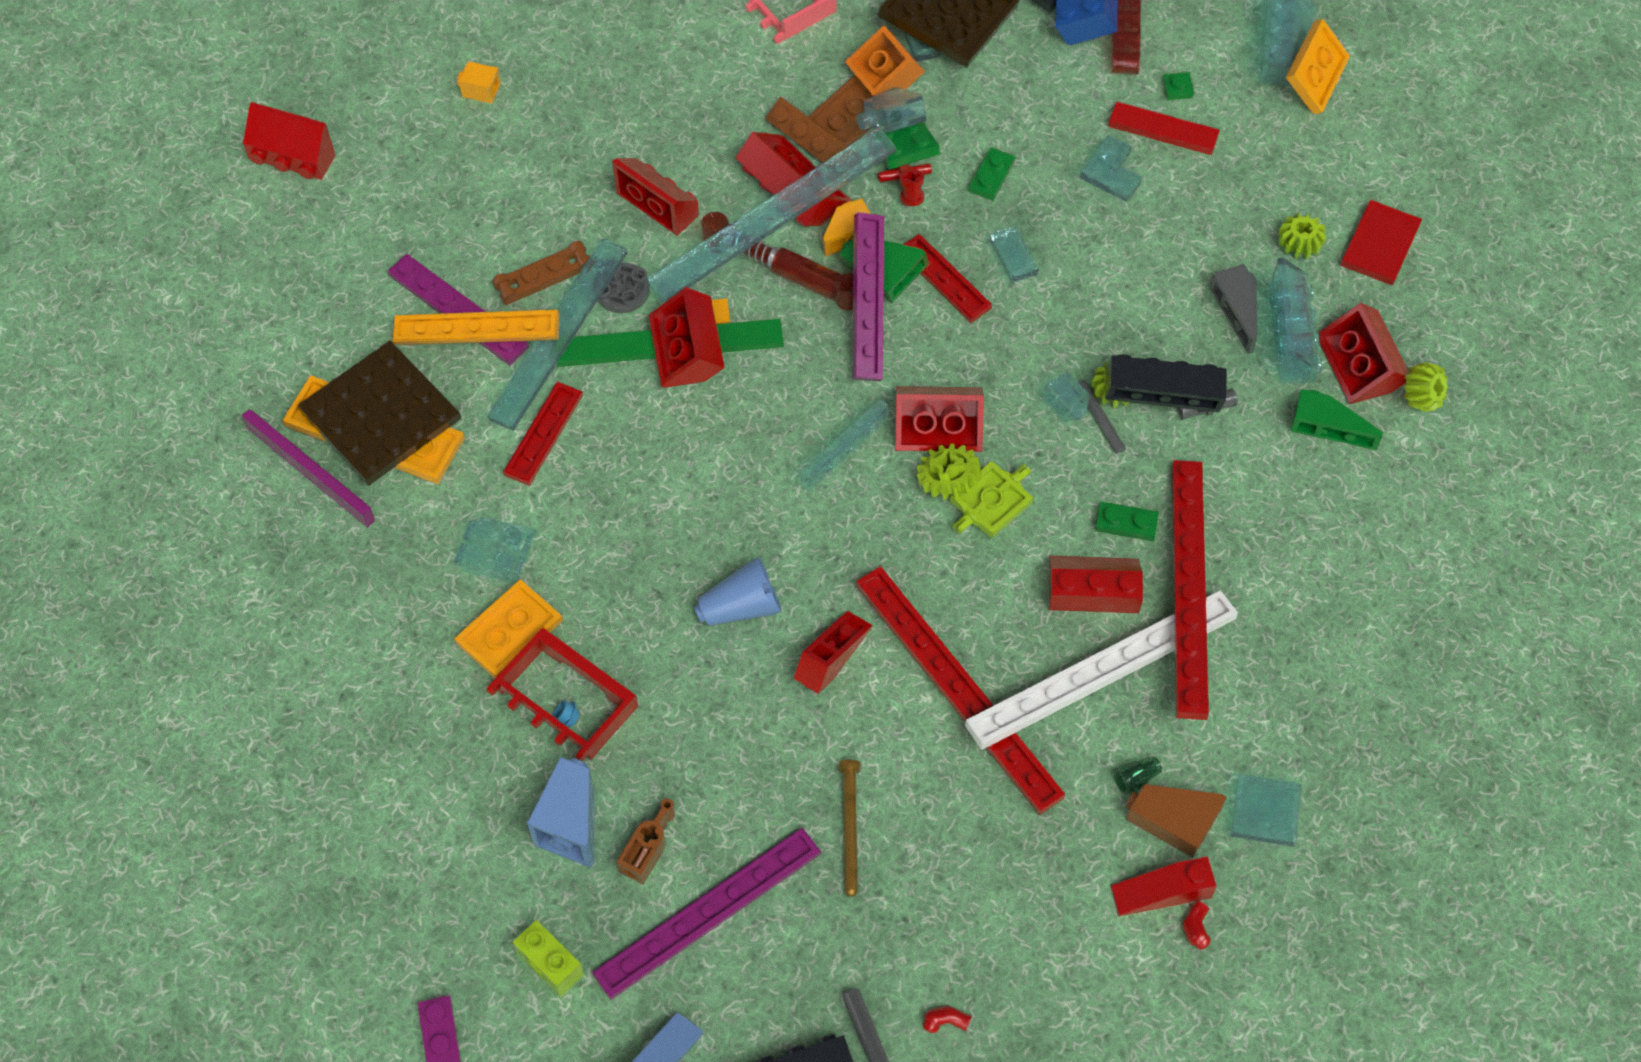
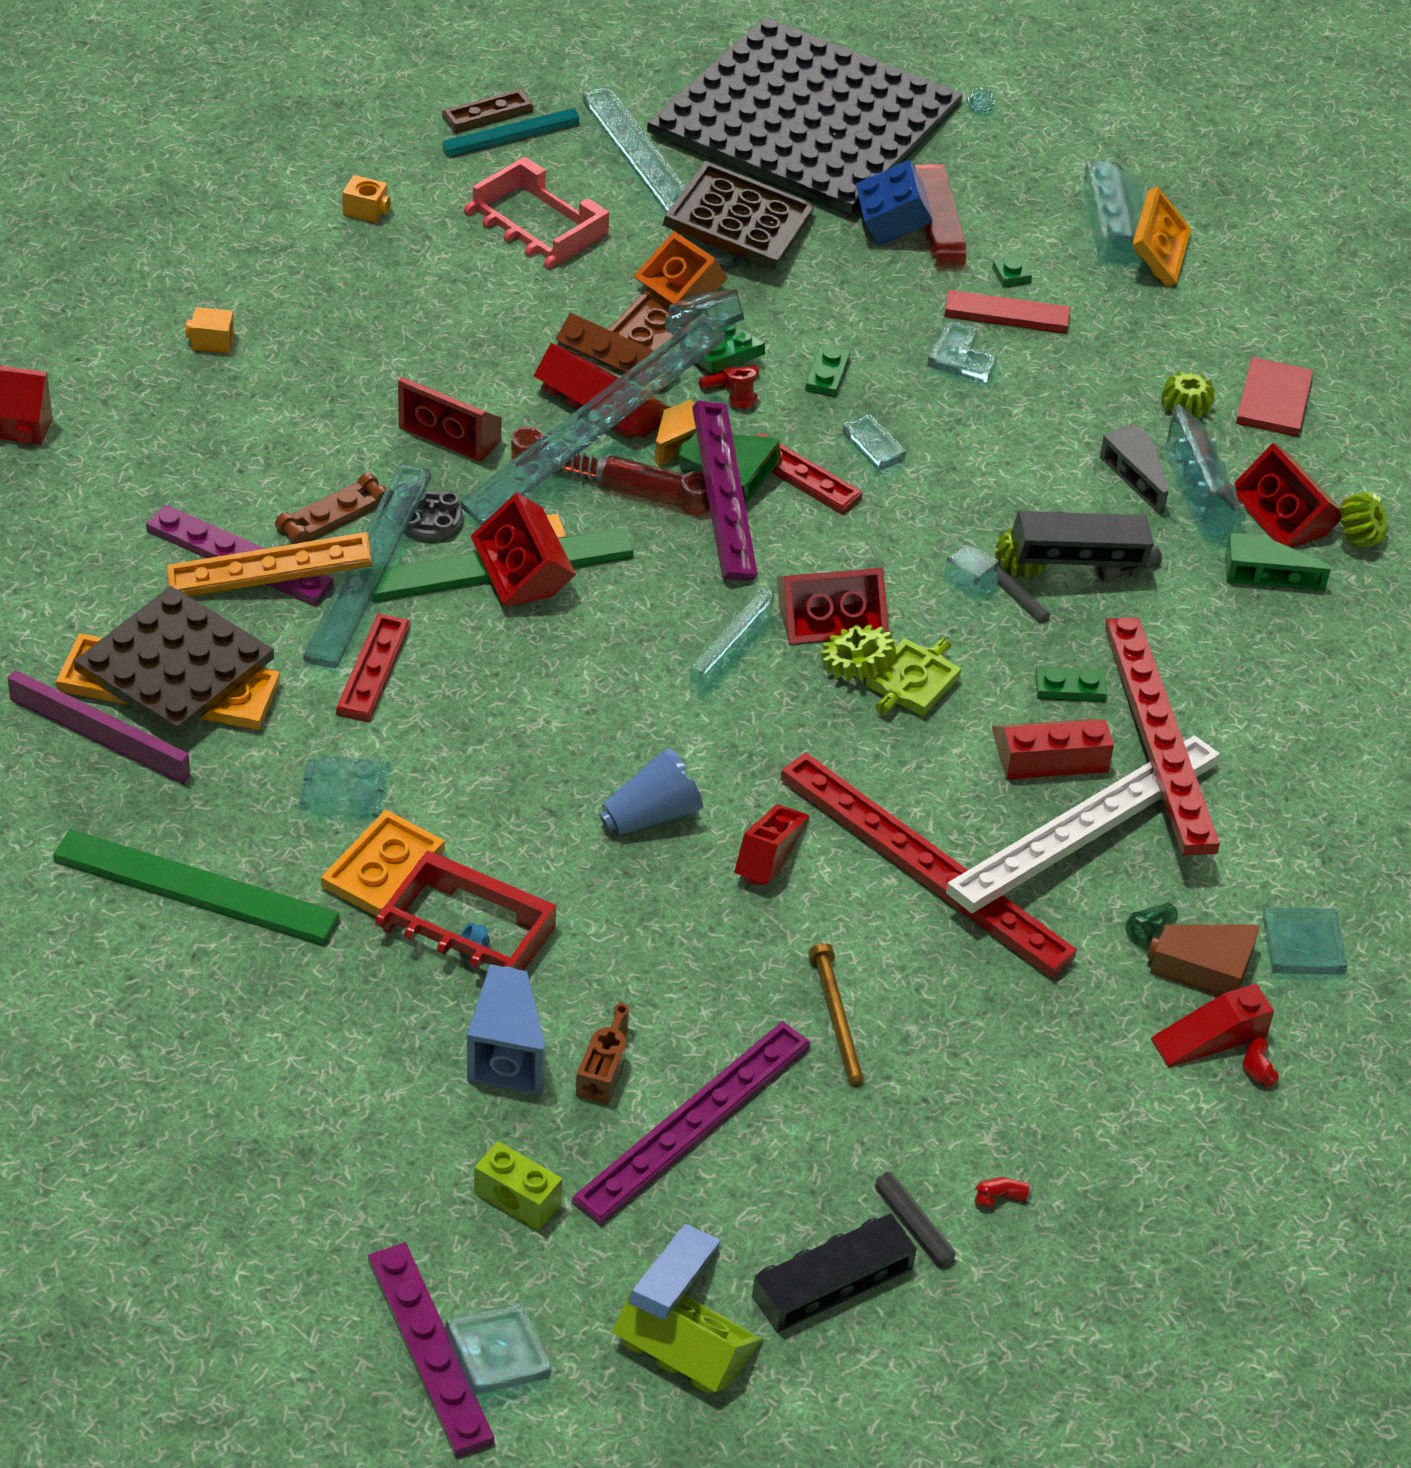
camera: 15 degrees left, 15 degrees down
(357, 631) = (196, 887): none -> green tile

